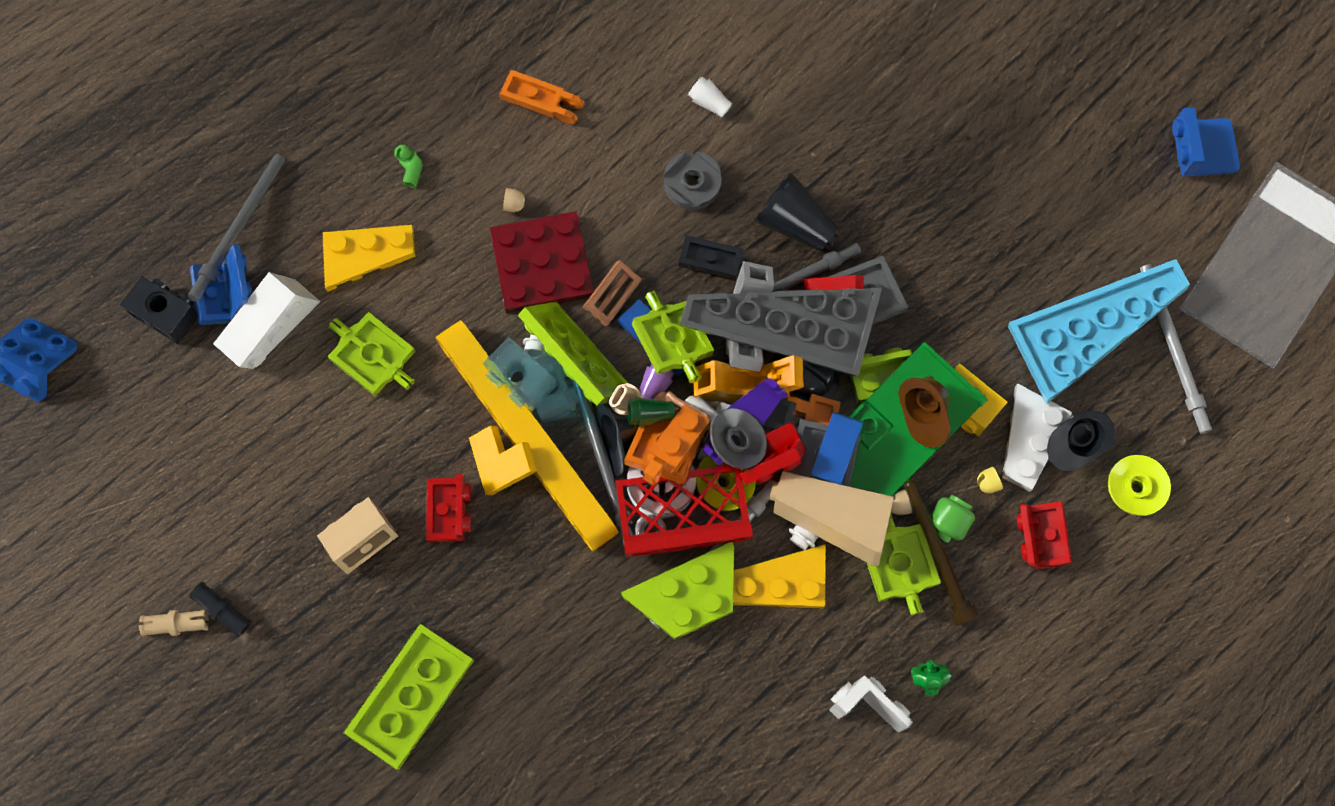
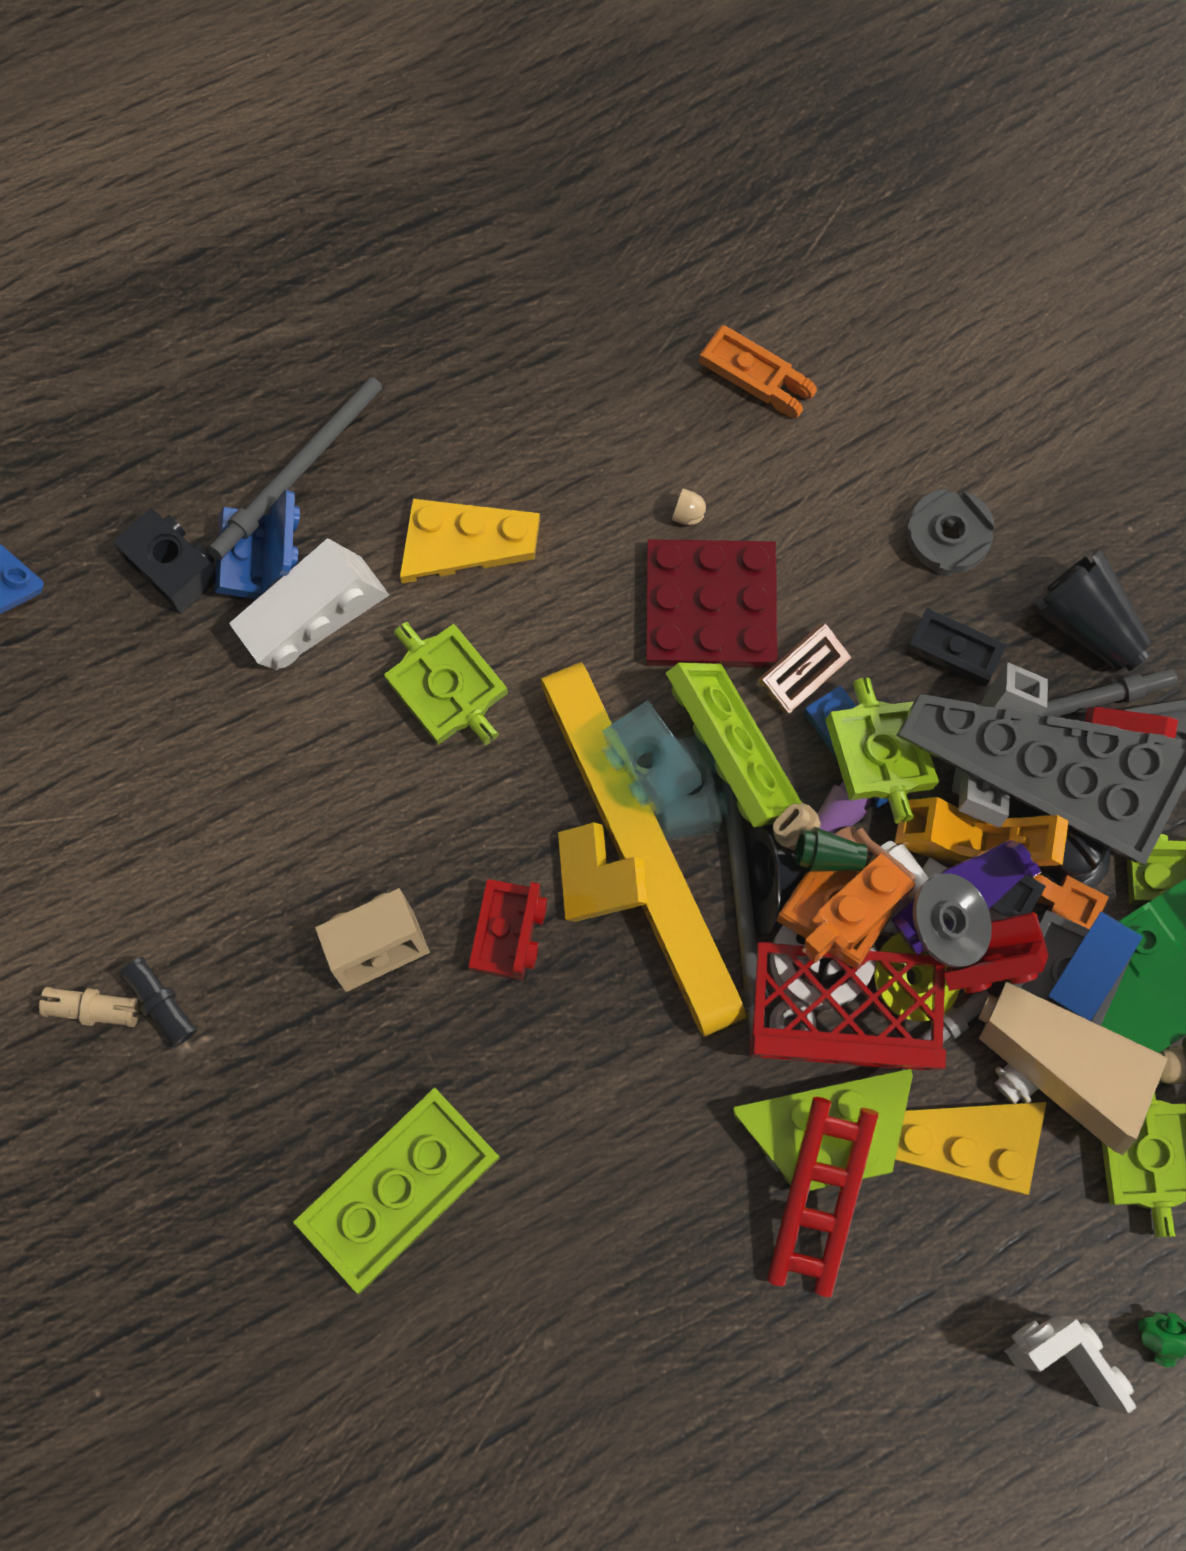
camera: 15 degrees right, 0 degrees up
(411, 163) = (556, 427): bright green arm -> none
(534, 347) = (678, 721): white plate -> none
(704, 650) = (809, 1170): none -> red bar
(709, 96) = (996, 416): white cone -> none

